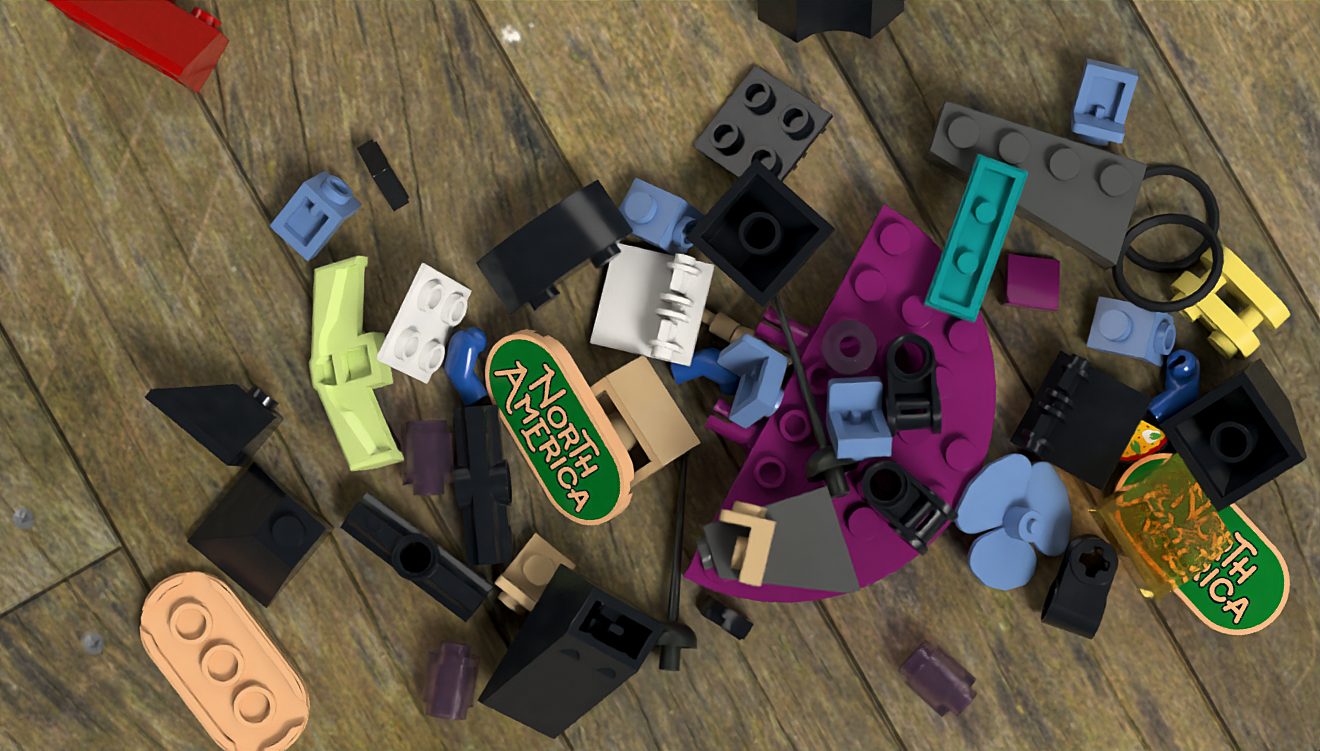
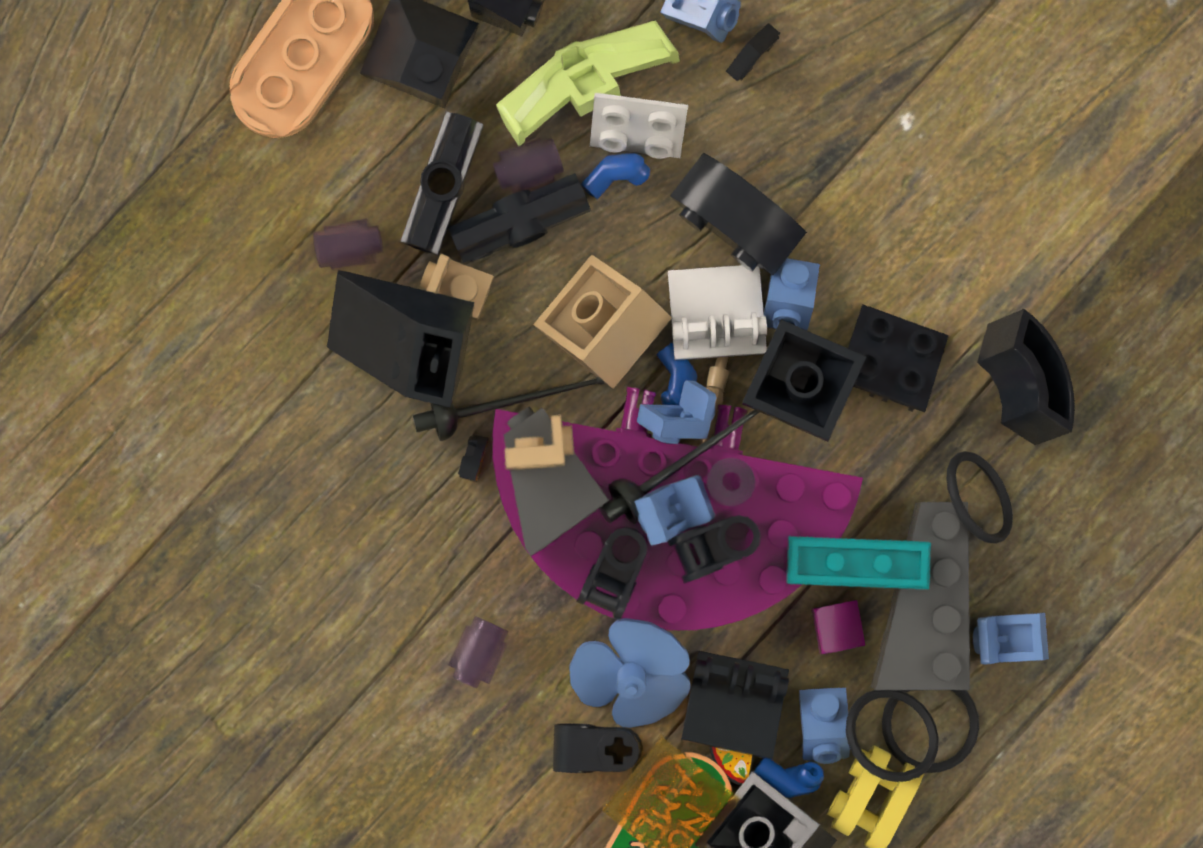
camera: 70 degrees right, 0 degrees up
(559, 427) = (588, 266): tile -> none
(945, 111) = (960, 508): none -> black tyre

